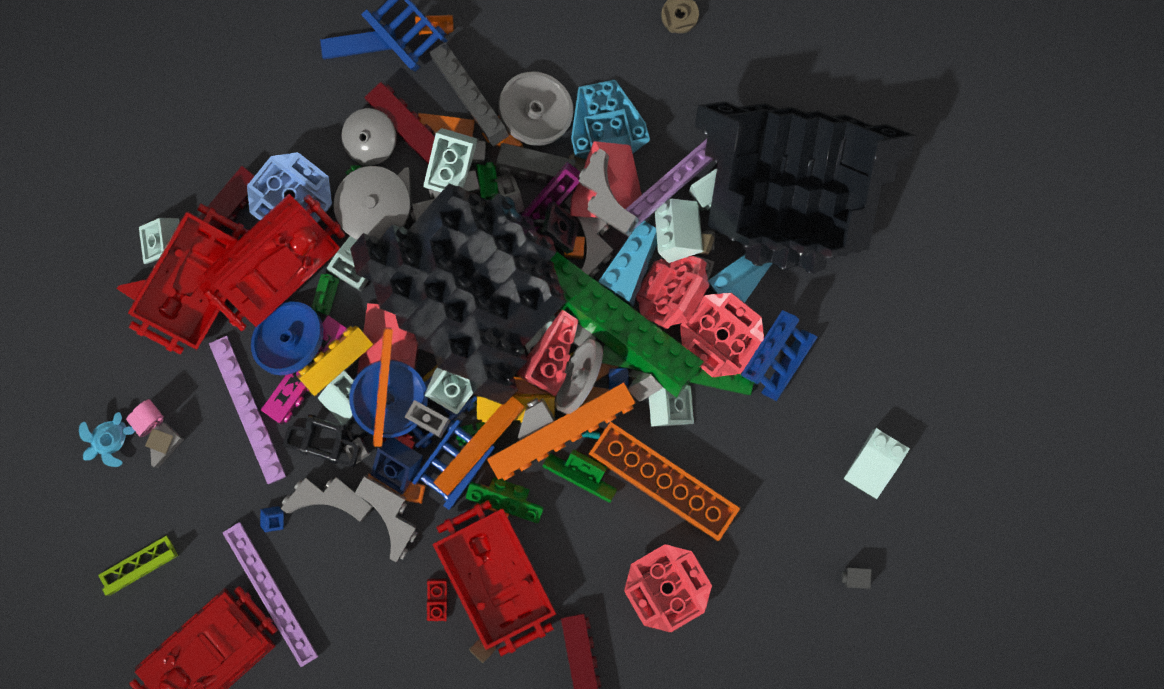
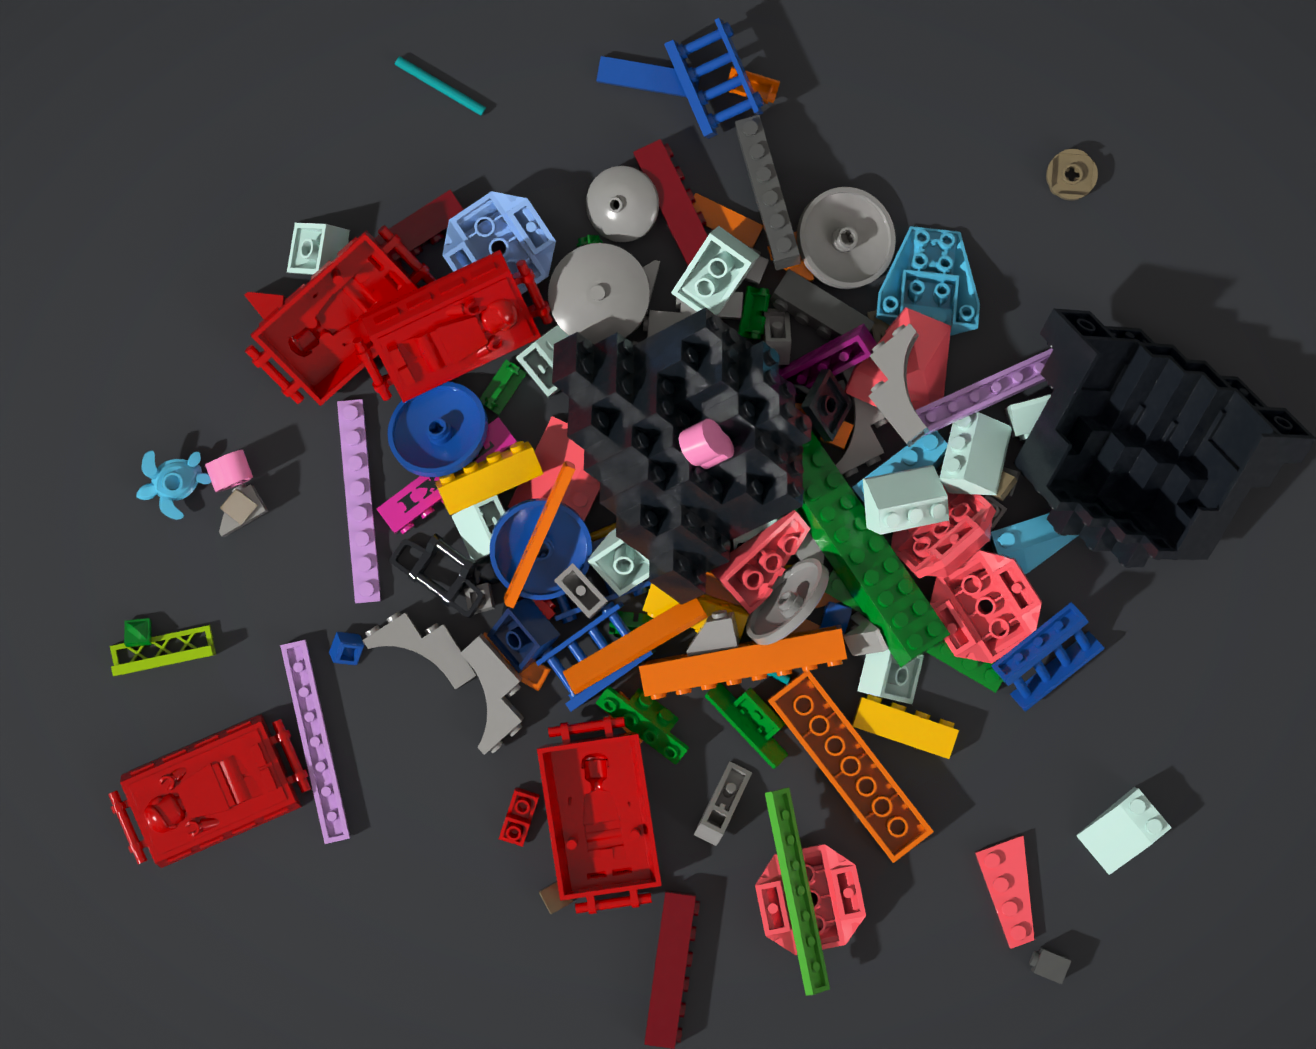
camera: 25 degrees right, 5 degrees up
(115, 558) = (137, 632): none -> green tile
(212, 97) = (440, 86): none -> teal bar
(480, 279) = (705, 444): none -> bright pink piece
(581, 540) = (723, 803): none -> light grey slope
(638, 276) = (904, 500): none -> light aqua slope
(656, 585) = (797, 891): none -> bright green plate
(694, 441) = (905, 727): none -> yellow brick
(805, 528) = (1008, 886): none -> coral wing

